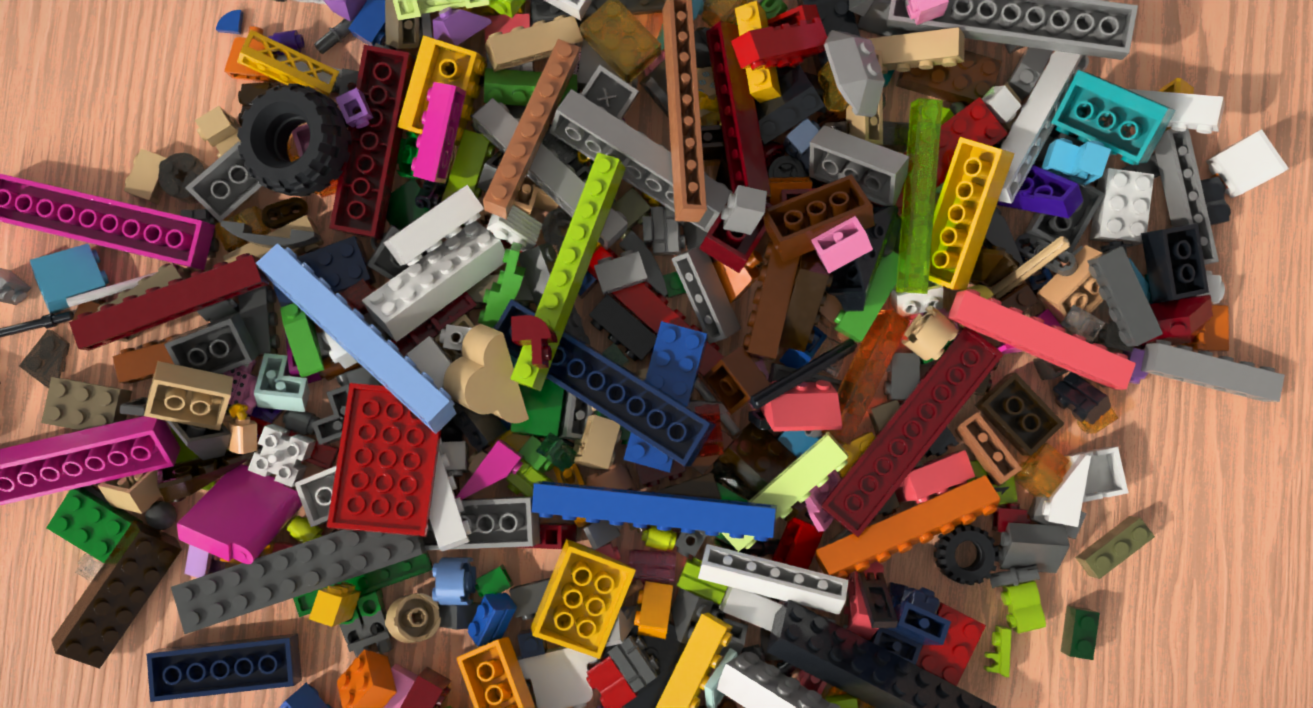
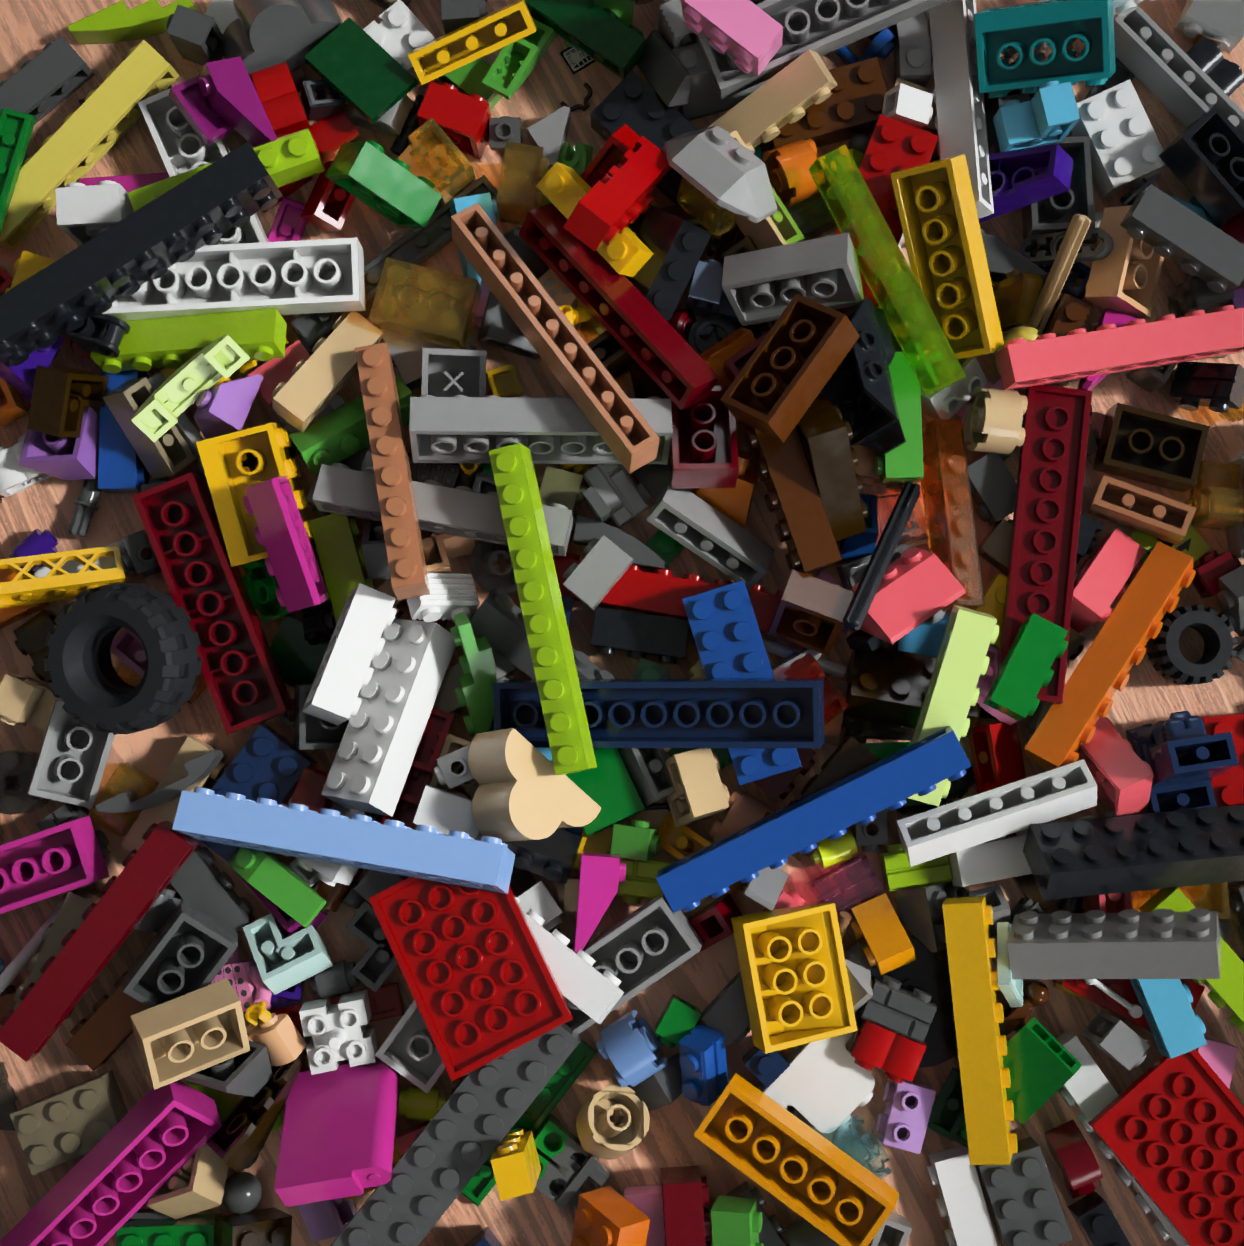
camera: 30 degrees left, 0 degrees up
(134, 407) = (133, 1085): dark grey tile -> none
(283, 212) = (158, 750): dark brown plate -> none
(349, 103) = (160, 572): medium lavender brick -> none
(534, 332) = (552, 703): dark red brick -> none
(557, 452) = (663, 825): clear green brick -> none
(640, 119) = (504, 381): none -> yellow tile
(744, 209) = (699, 411): light grey brick -> none
(842, 244) = (838, 381): bright pink brick -> none
(849, 500) = (1027, 667): none -> green brick
(877, 600) = (1131, 761): black hinge -> none
(900, 98) = (790, 171): none -> orange brick
(1009, 56) = (880, 46): none -> blue plate
(1082, 323) = (1158, 299): clear brick -> none

